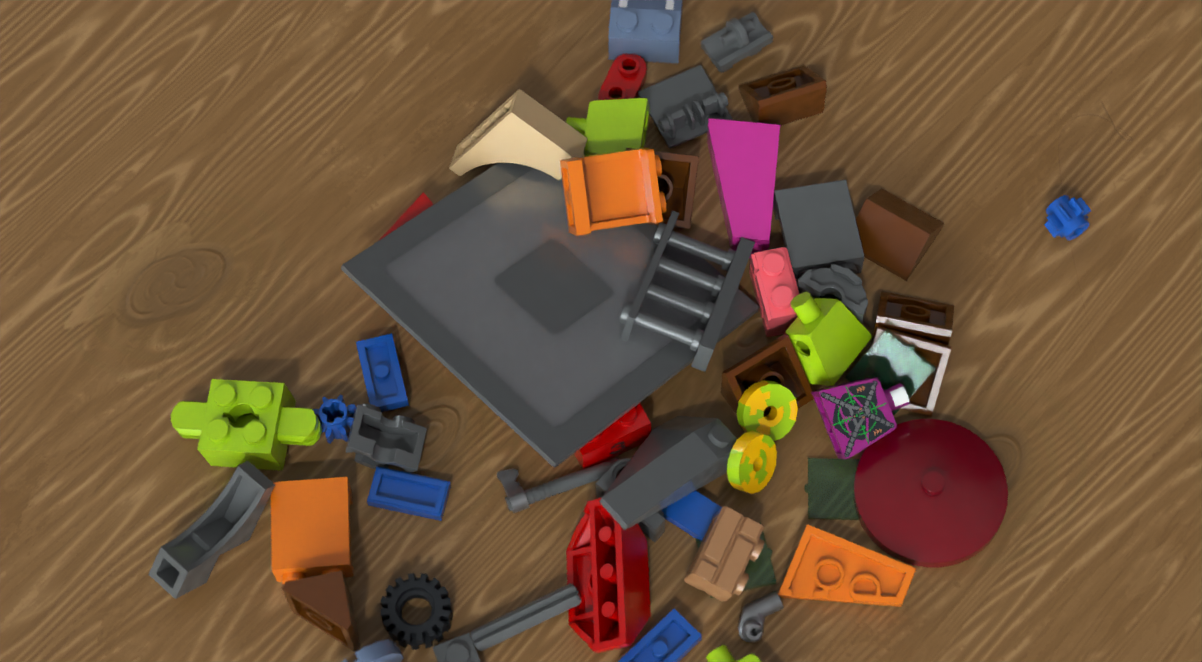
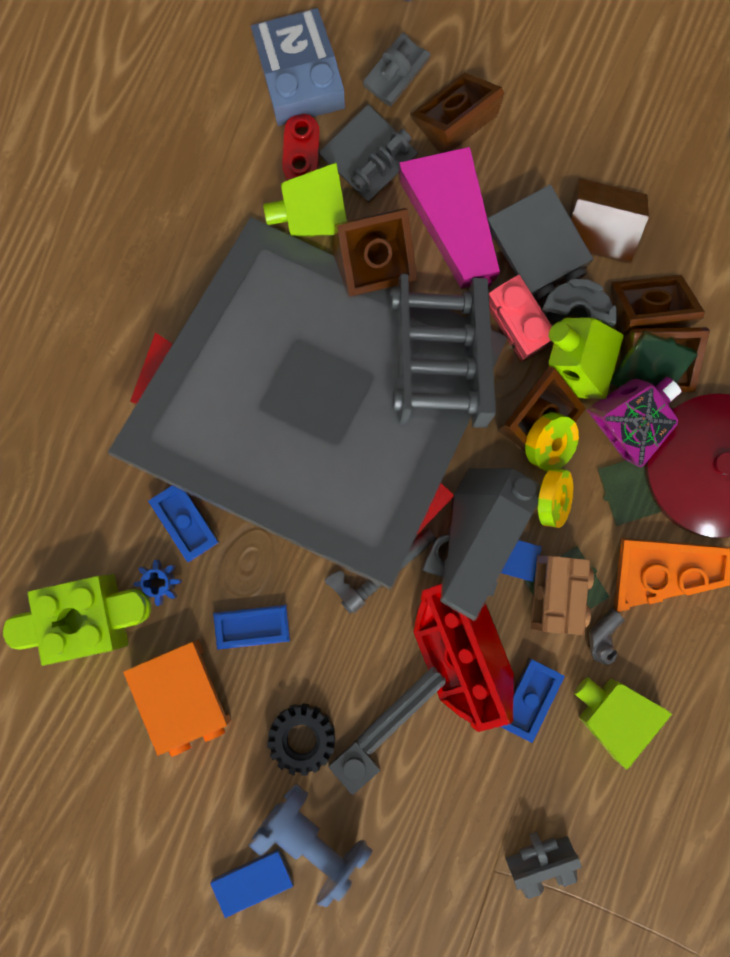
camera: 20 degrees left, 20 degrees up
(226, 524) = (90, 735): dark grey arch -> none
(326, 605) = (223, 775): reddish brown slope -> none
(385, 441) = (212, 590): dark grey cylinder -> none
(520, 134) = (230, 242): tan arch -> none
(612, 190) = (337, 273): orange panel -> none

